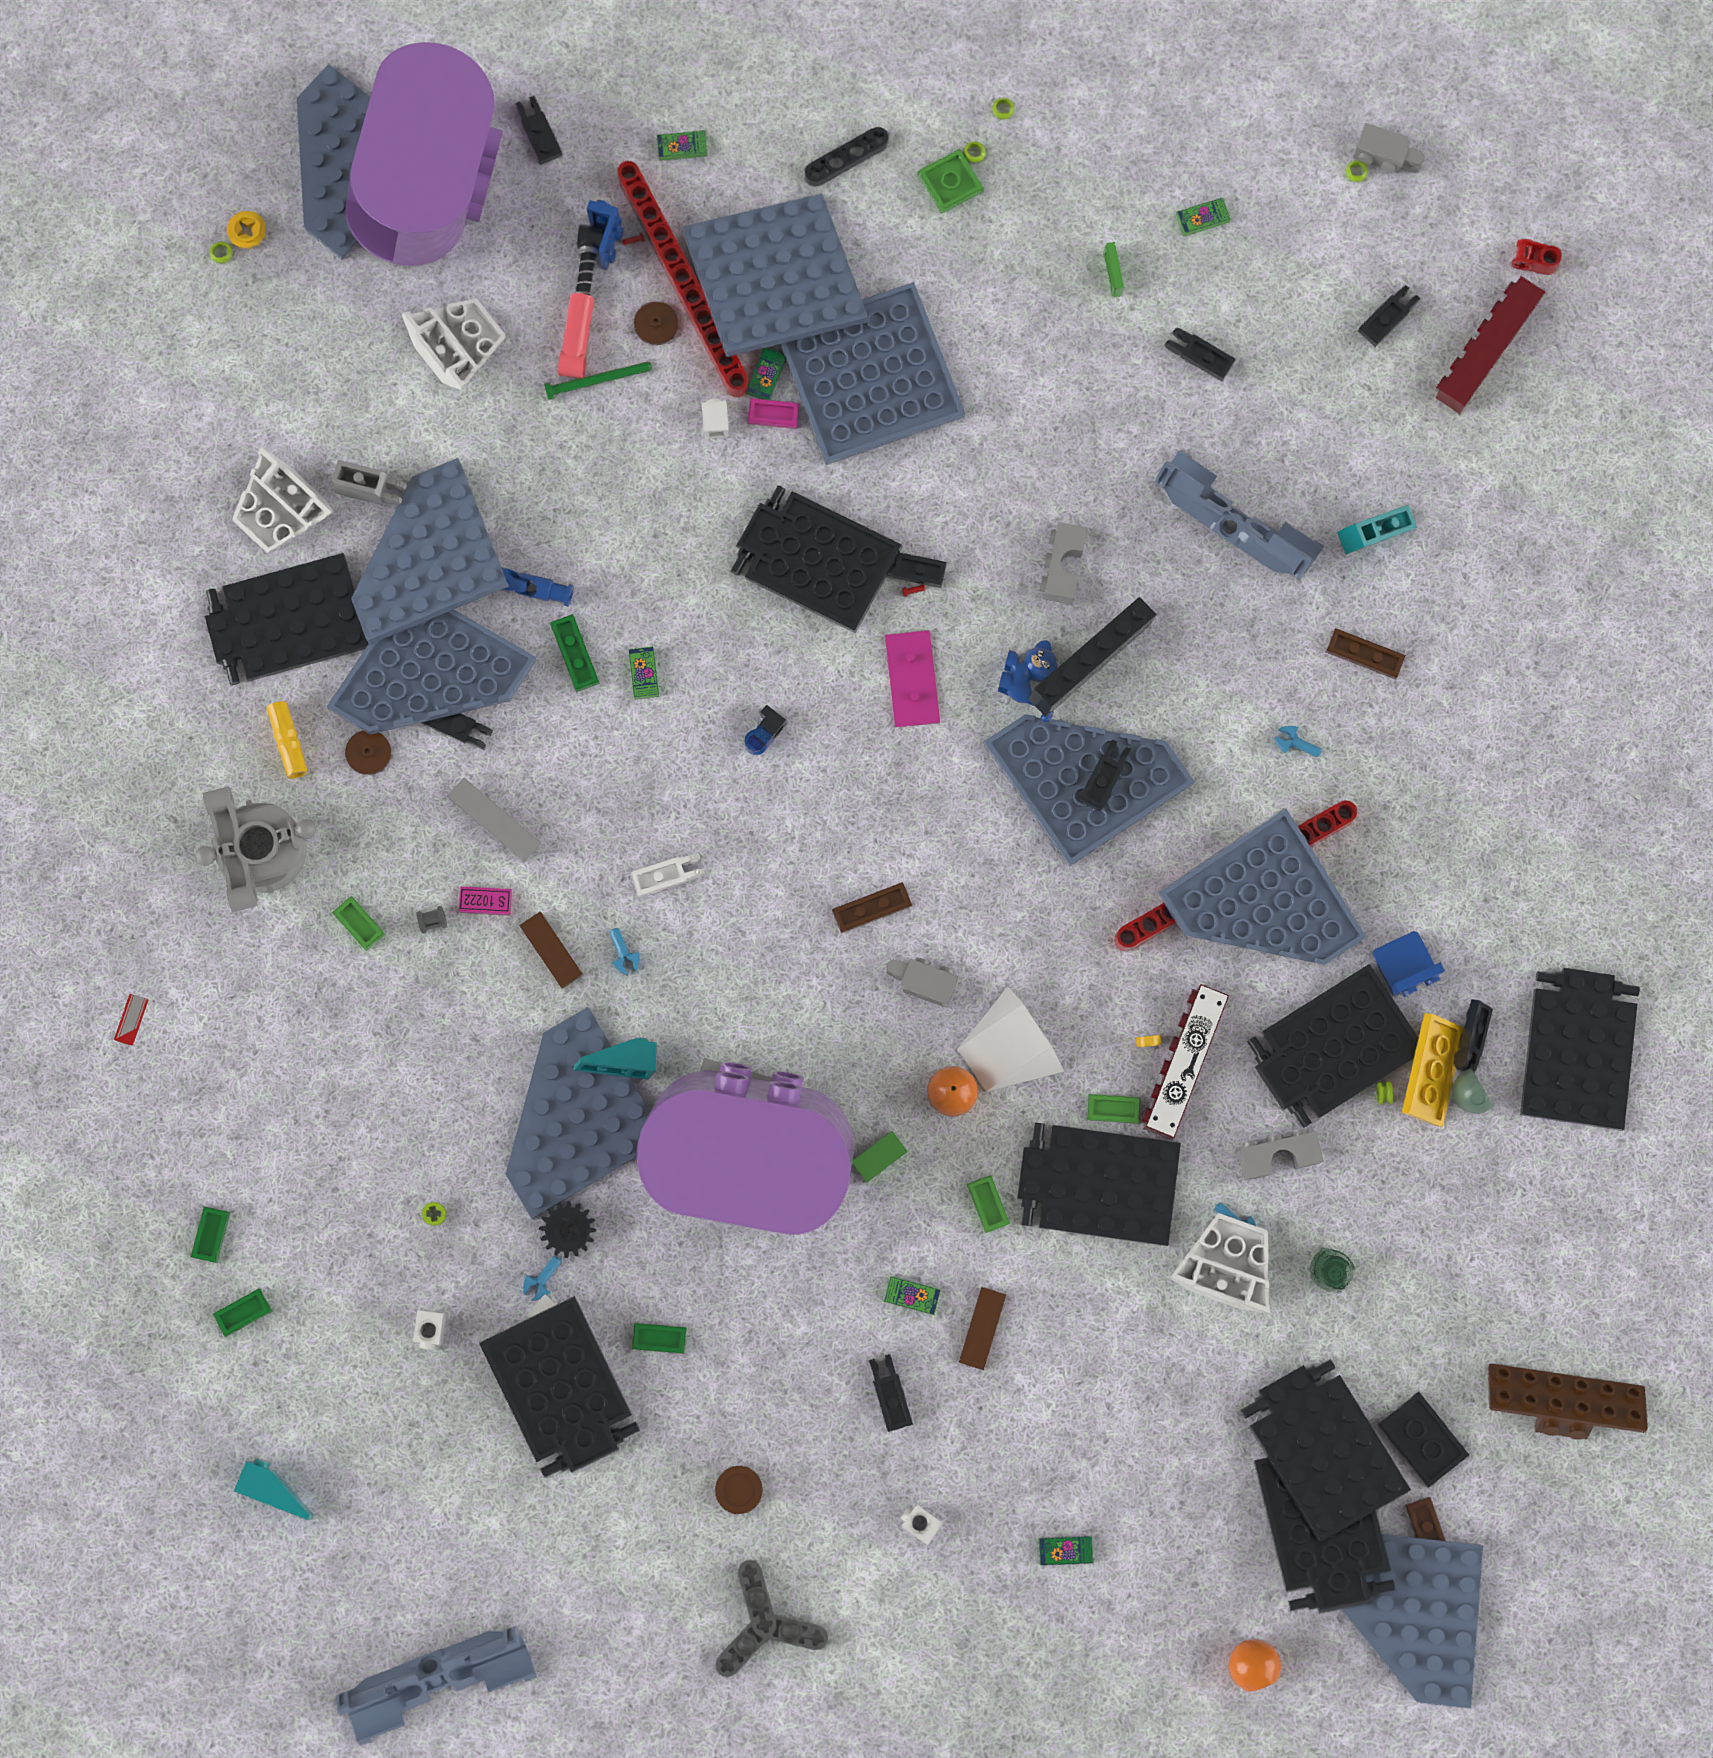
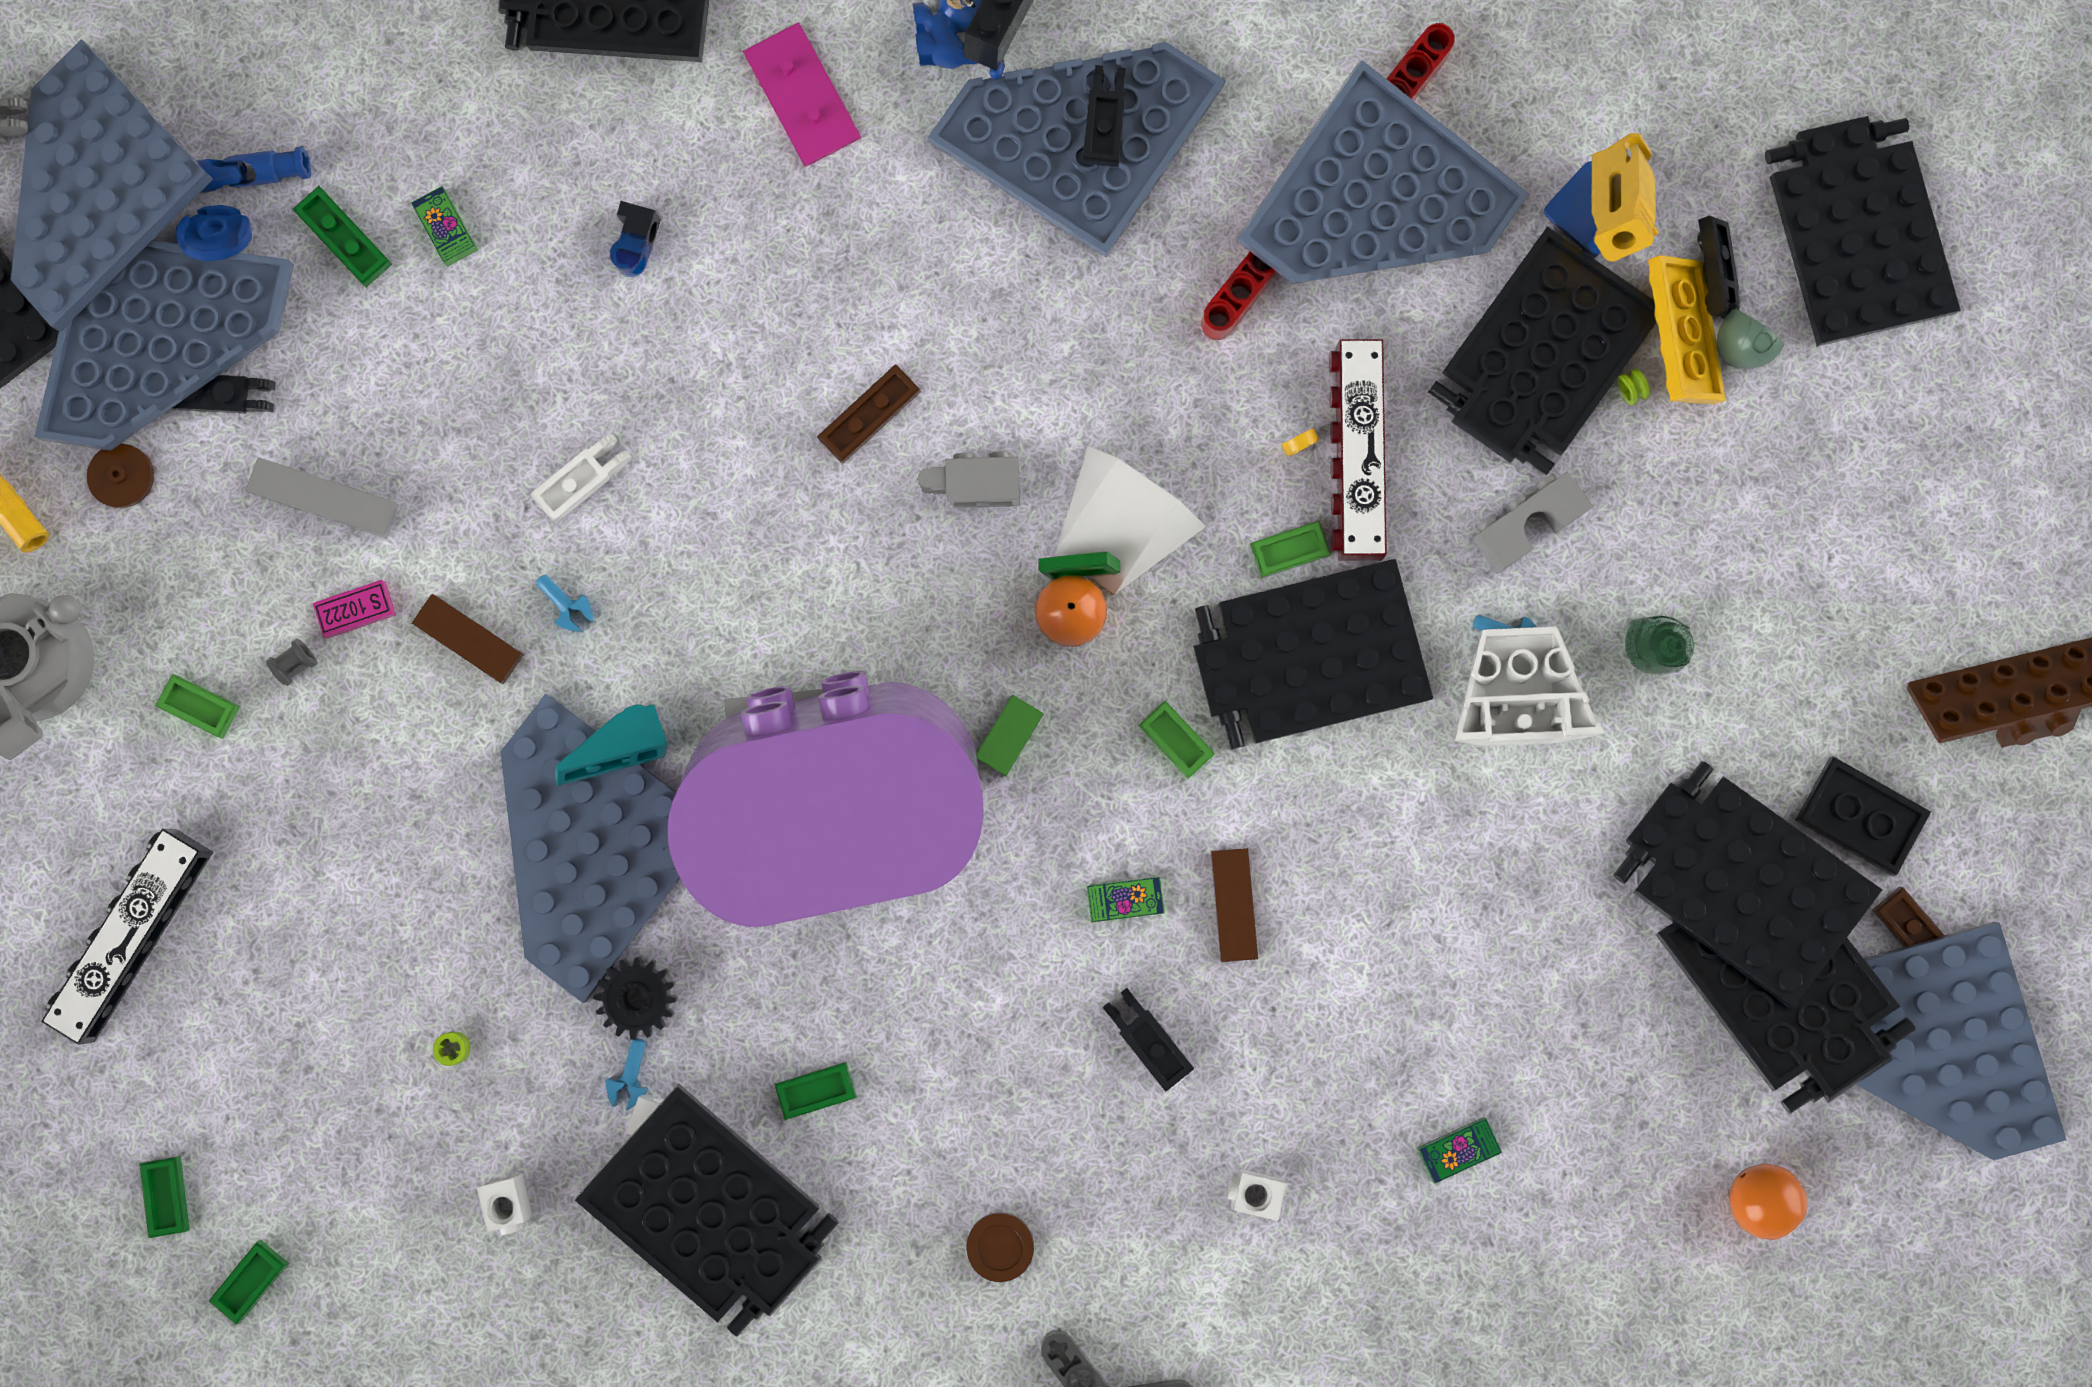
camera: 15 degrees left, 5 degrees up
(255, 1055) = (126, 936): none -> brick
(493, 619) = (214, 233): none -> blue tile
(970, 1063) = (1080, 564): none -> green tile
(1421, 967) = (1623, 198): none -> yellow piece

